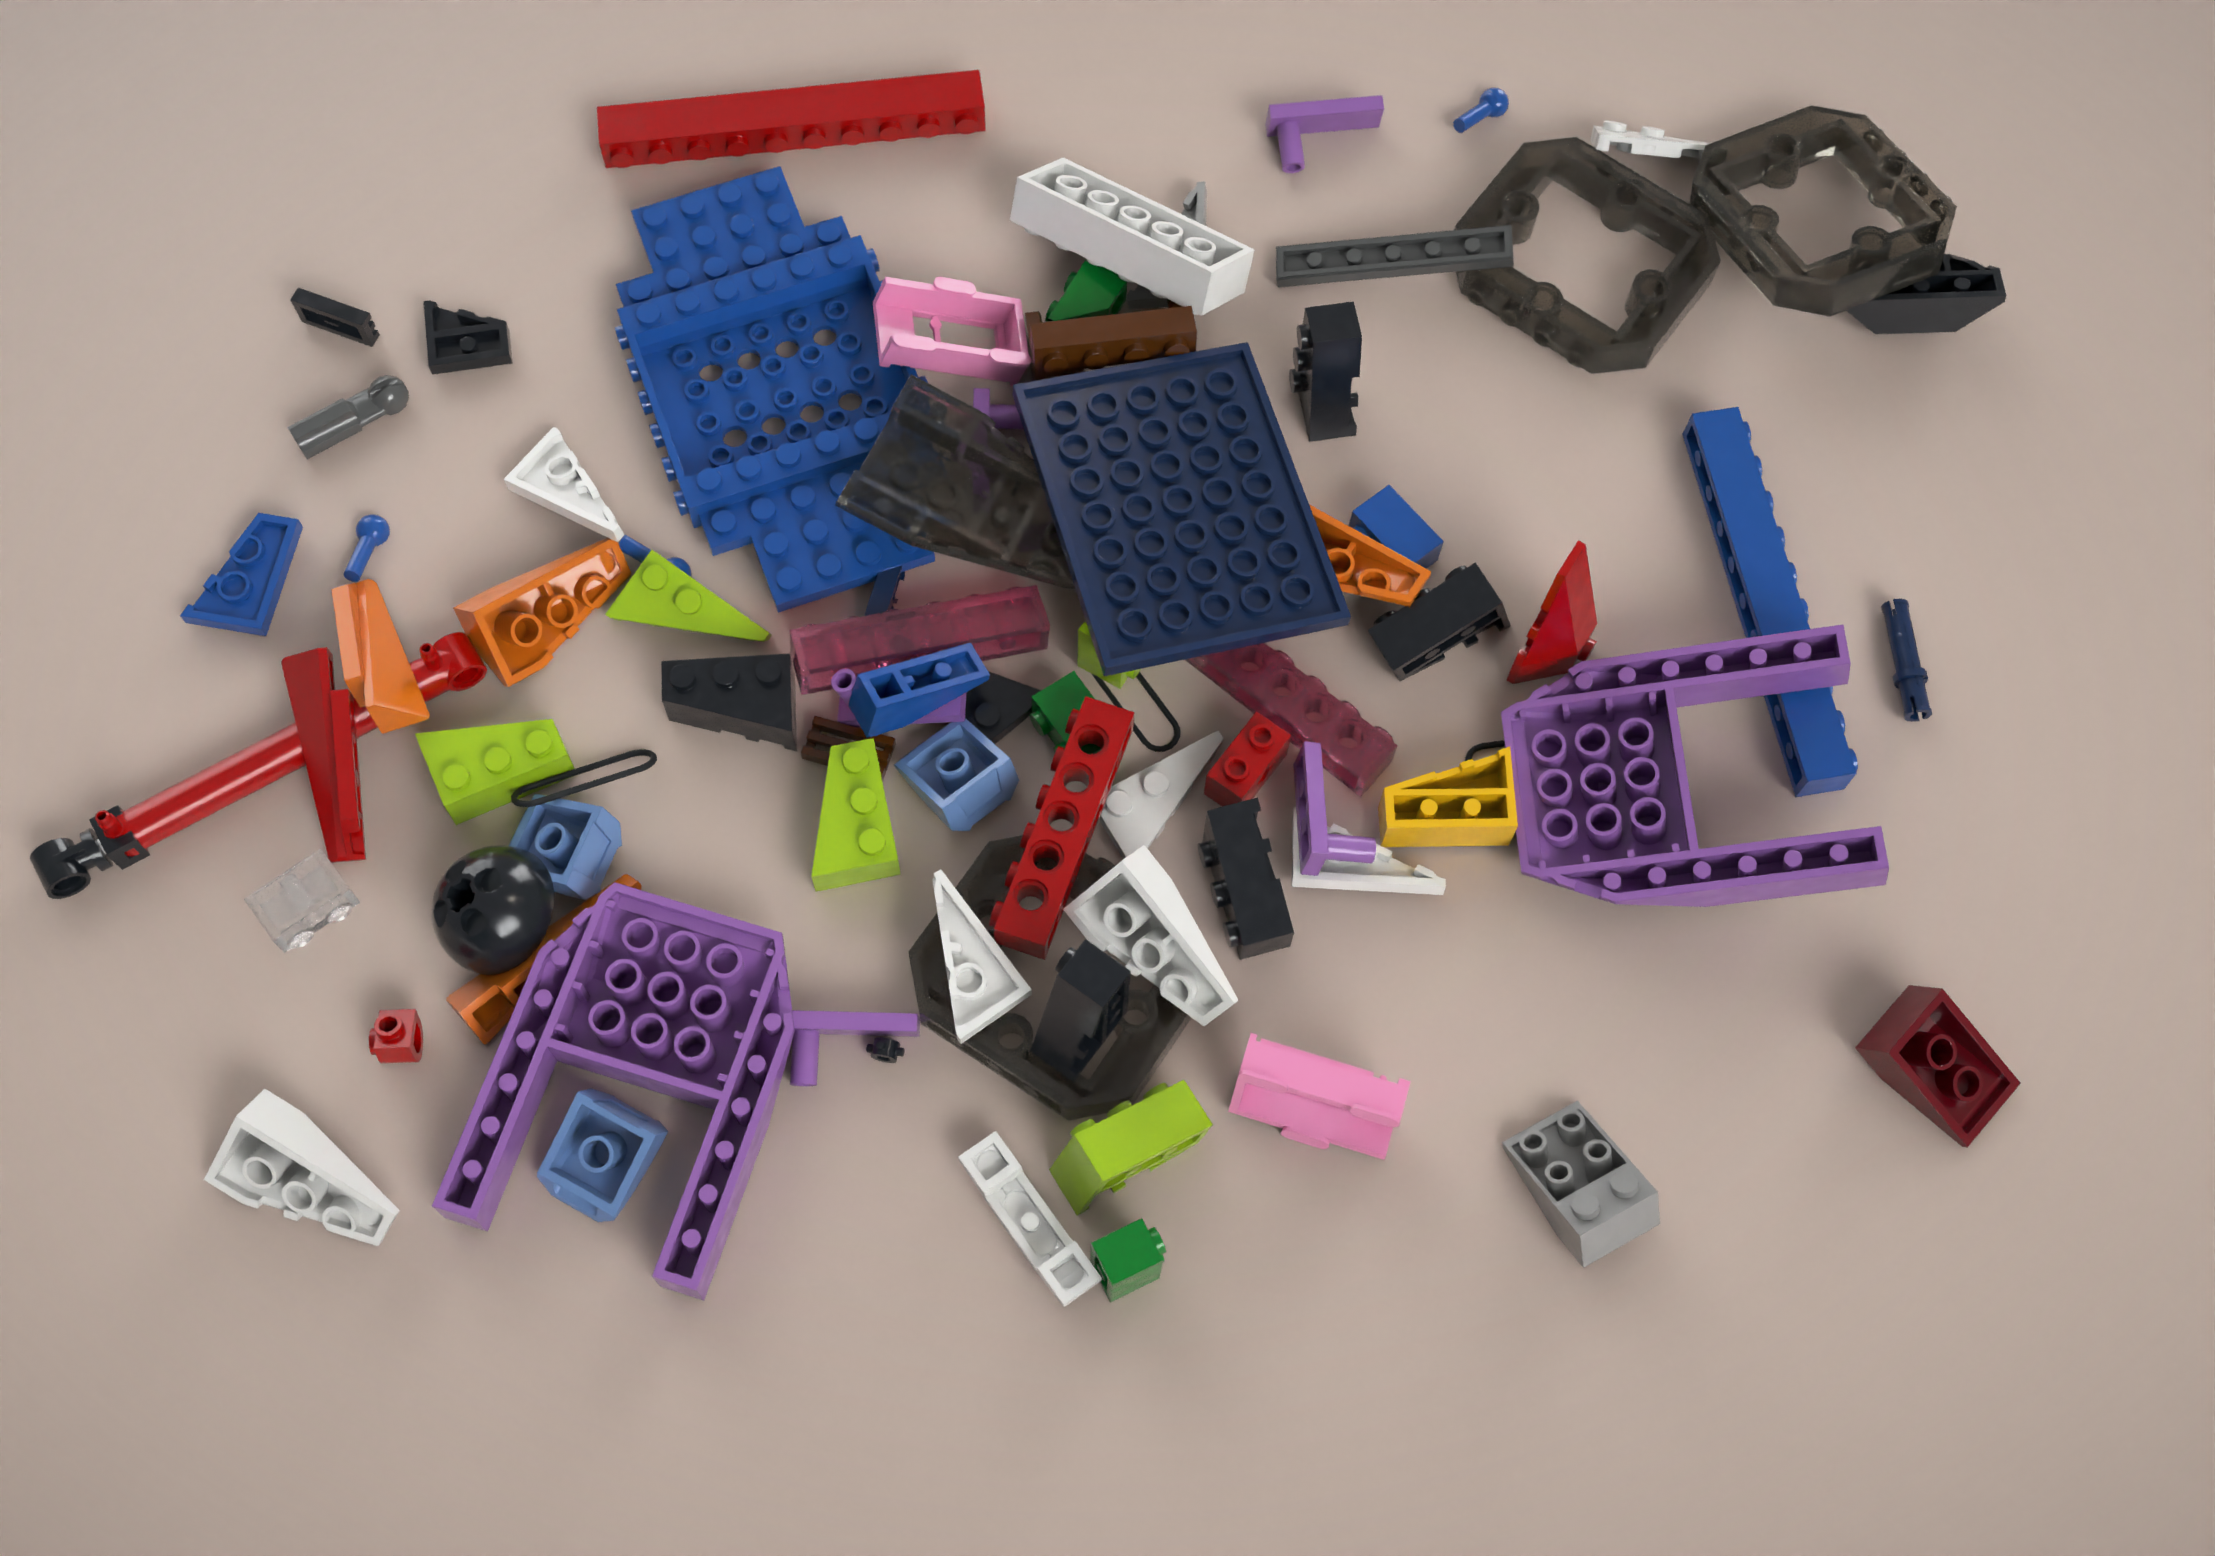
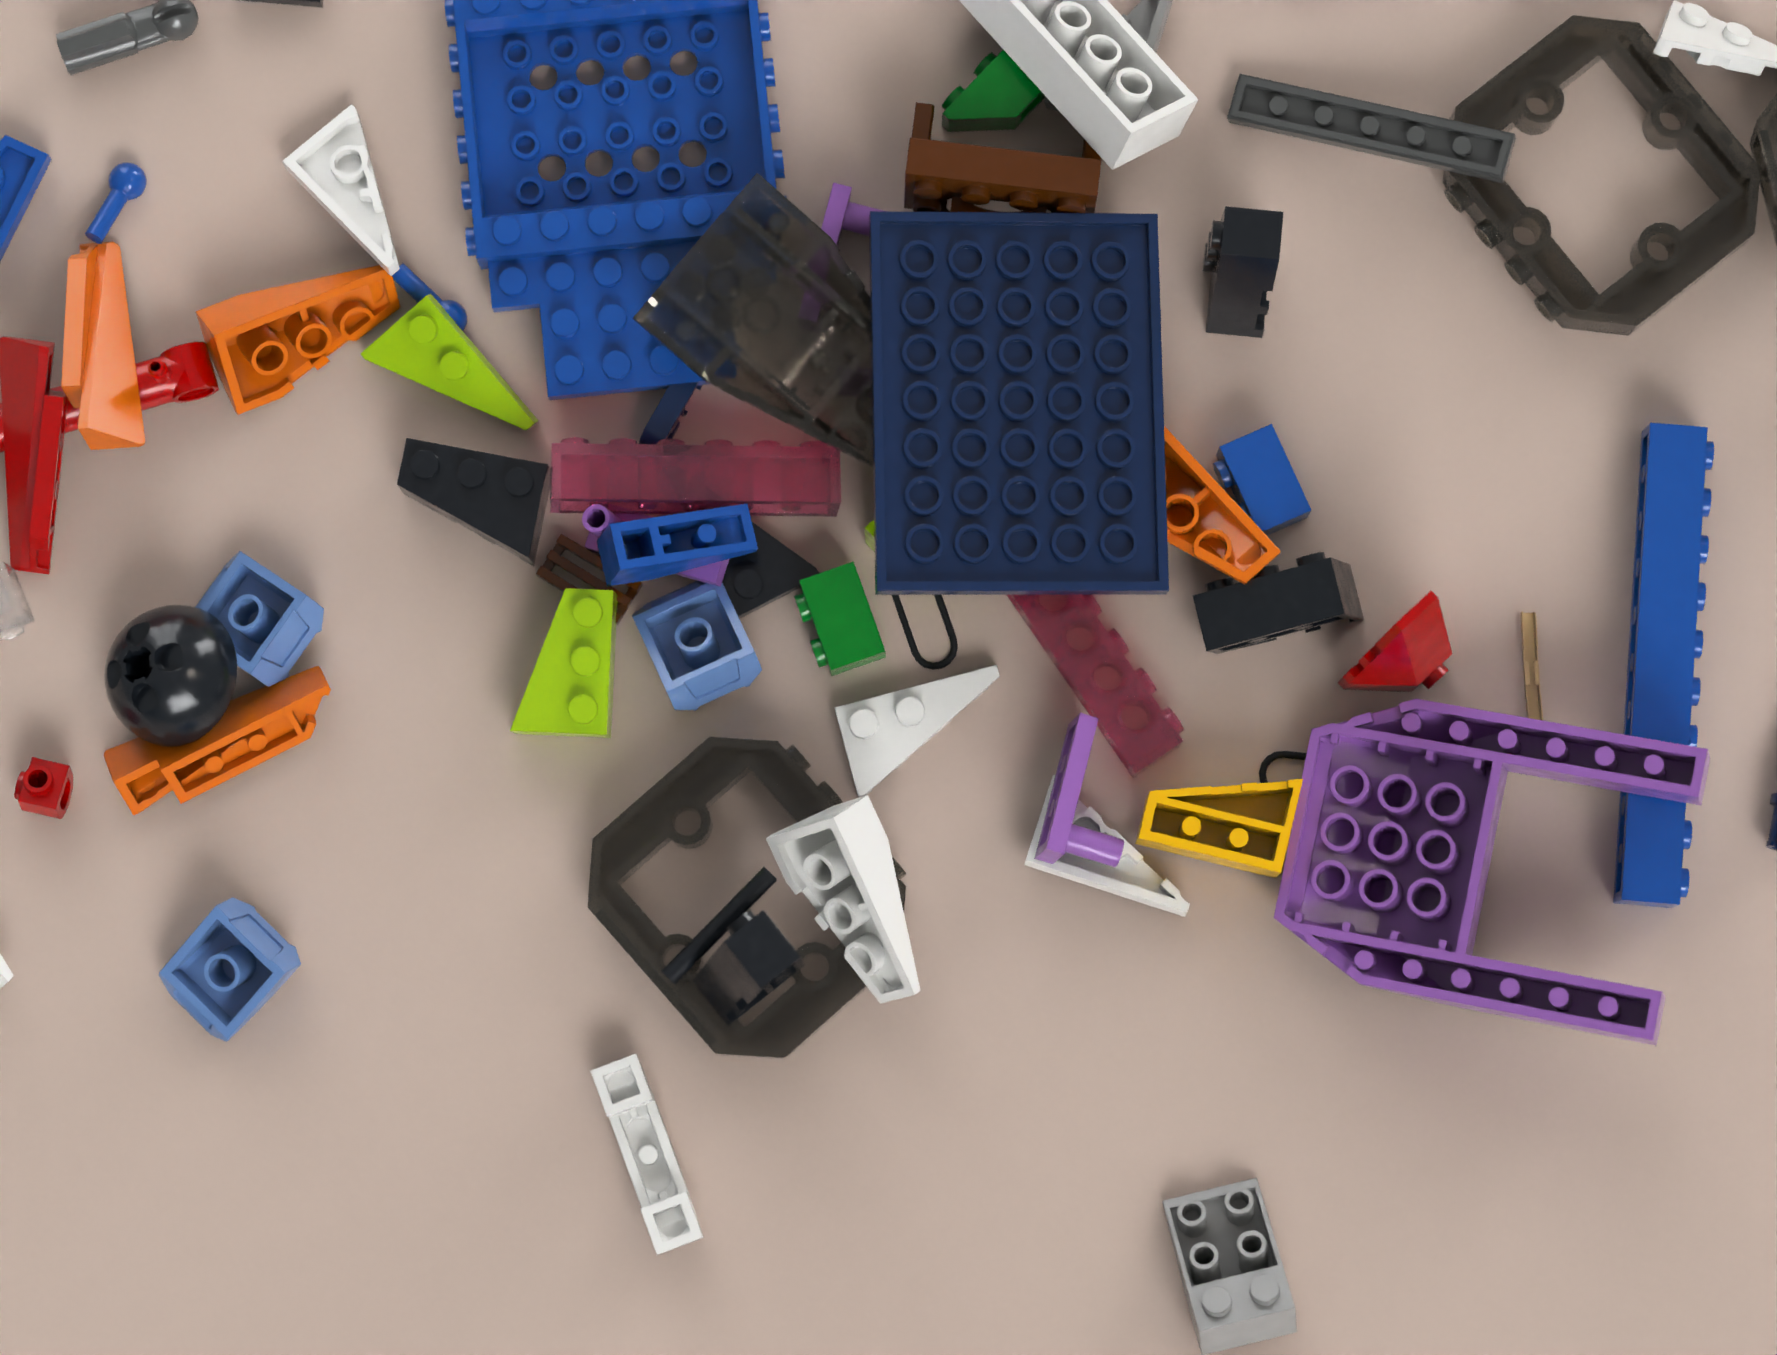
camera: 20 degrees right, 15 degrees up
(485, 764) = (202, 507): lime wedge -> none
(641, 752) = (296, 559): black piece -> none
(660, 1004) = (325, 827): medium lavender wedge -> none
(811, 1024) = (473, 886): medium lavender piece -> none
(885, 1050) = (545, 932): black piece -> none
(955, 303) = (762, 90): bright pink piece -> none
(978, 971) = (658, 887): white wing -> none
(1034, 929) = (847, 635): red brick -> none
(1037, 1002) = (717, 926): none -> black bar
(1128, 1142) = (771, 1102): lime wedge -> none
(1128, 1258) = (733, 1226): green brick -> none
(1245, 880) = (972, 851): black wedge -> none
(1247, 762) = (1015, 715): red brick -> none
(1317, 1098) = (976, 1111): bright pink piece -> none
(1655, 618) = (1531, 665): none -> tan piece
(1938, 1062) = (1653, 1243): dark red slope -> none

